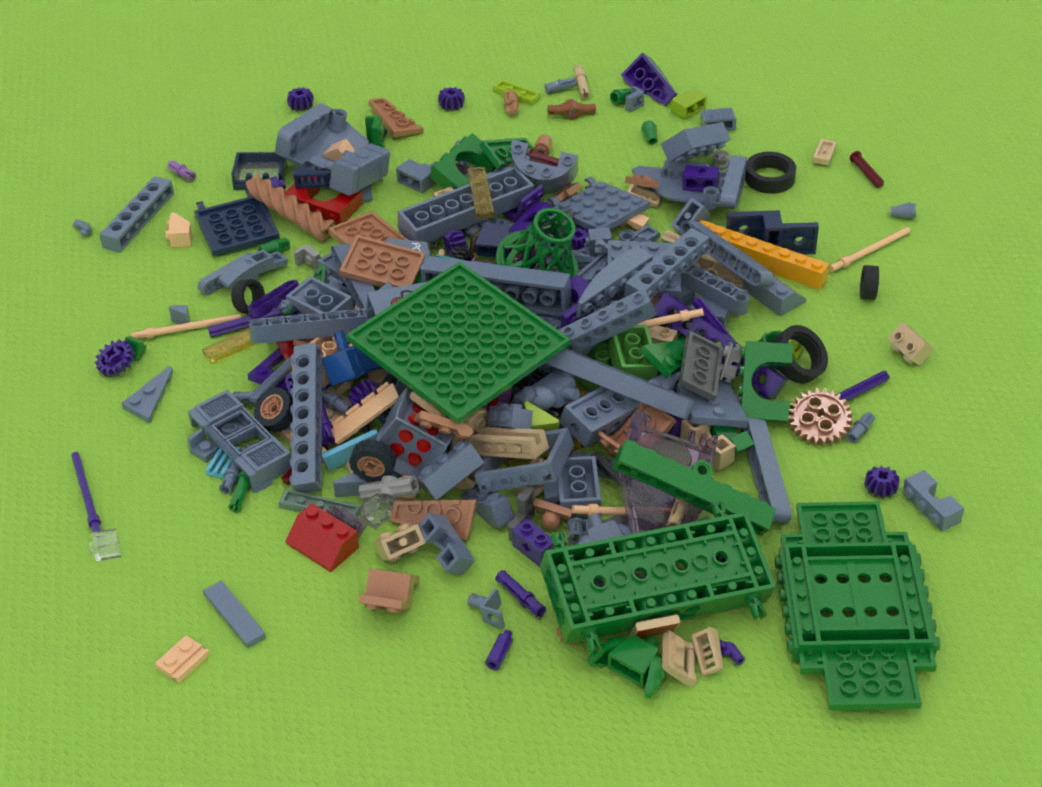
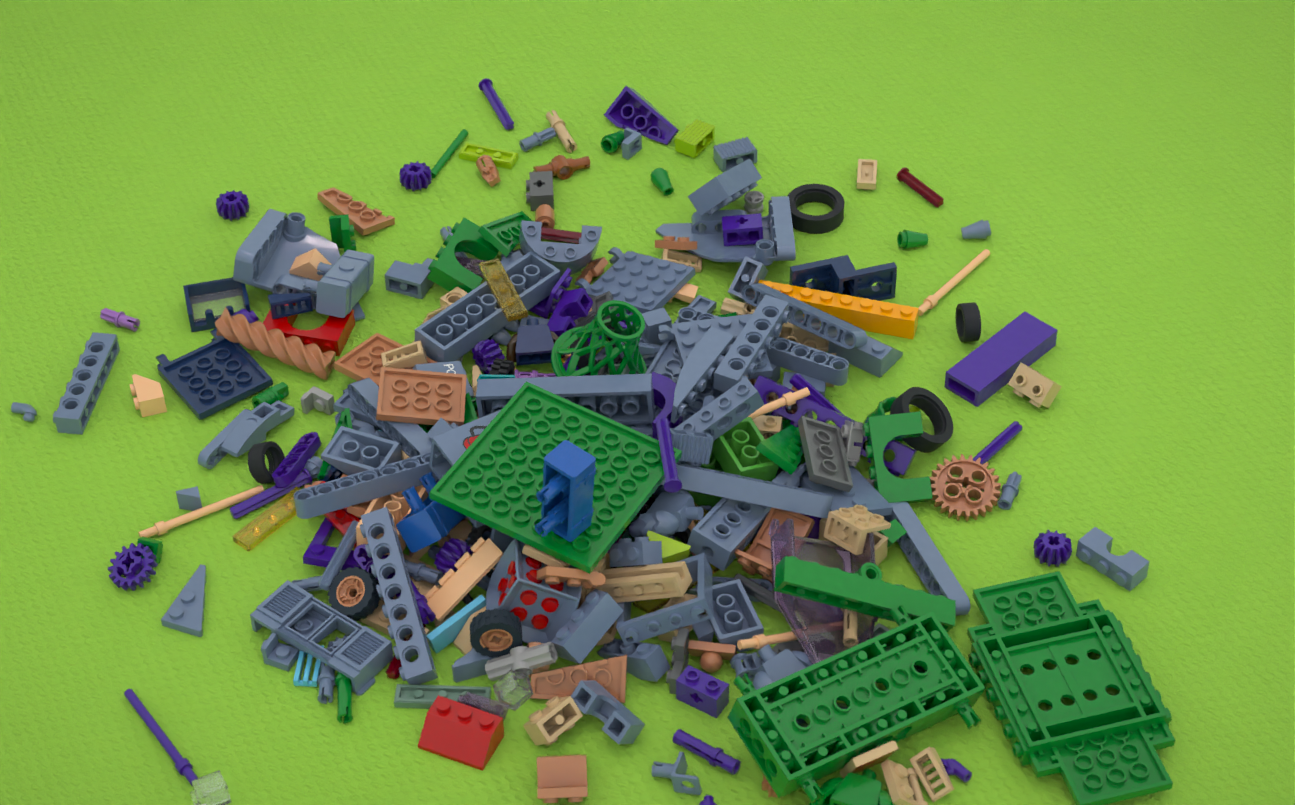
camera: 15 degrees left, 0 degrees up
(387, 230) = (405, 356): none -> tan slope
(449, 351) = (566, 491): none -> blue piece
(486, 85) = (448, 153): none -> green bar
(534, 39) = (486, 86): none -> dark purple axle
(547, 123) = (540, 189): none -> dark grey brick
(552, 363) = (672, 483): none -> dark purple axle
(583, 337) = (694, 445): none -> sand blue brick
(699, 428) = (850, 527): none -> tan bracket
(845, 209) = (911, 239): none -> green cone
(877, 321) = (997, 359): none -> dark purple brick

